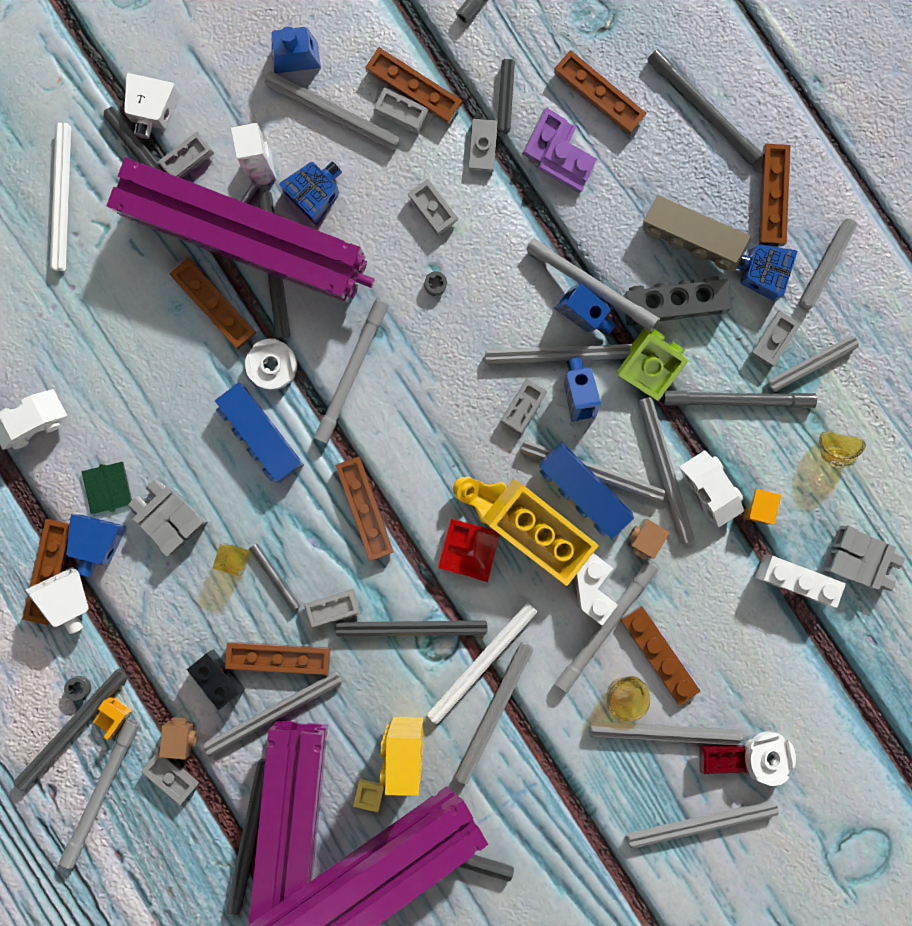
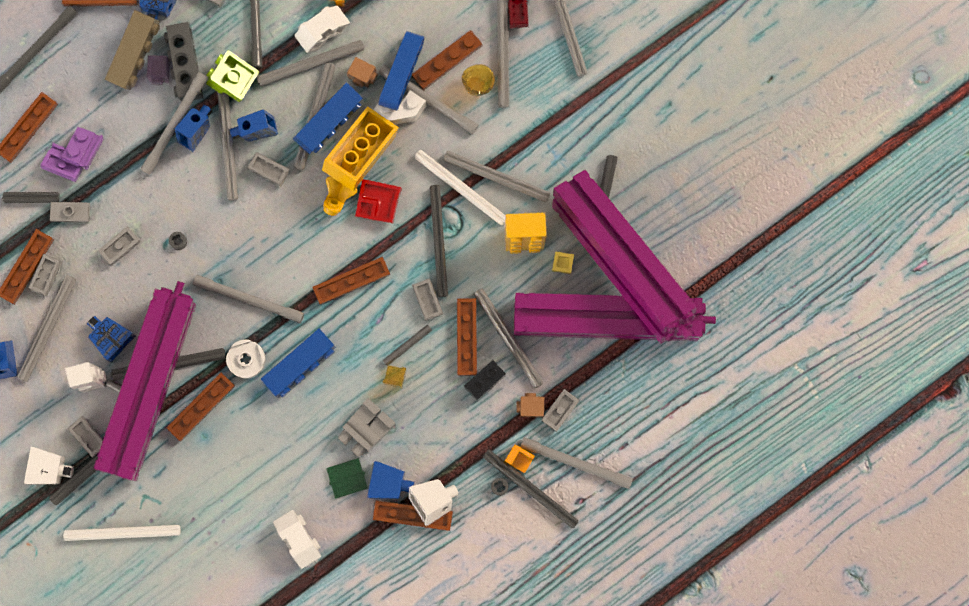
camera: 90 degrees left, 5 degrees down
(247, 843) = (601, 349): dark grey axle -> none
(645, 594) = (401, 71): none -> blue beam
(668, 266) = (158, 69): none -> clear purple brick

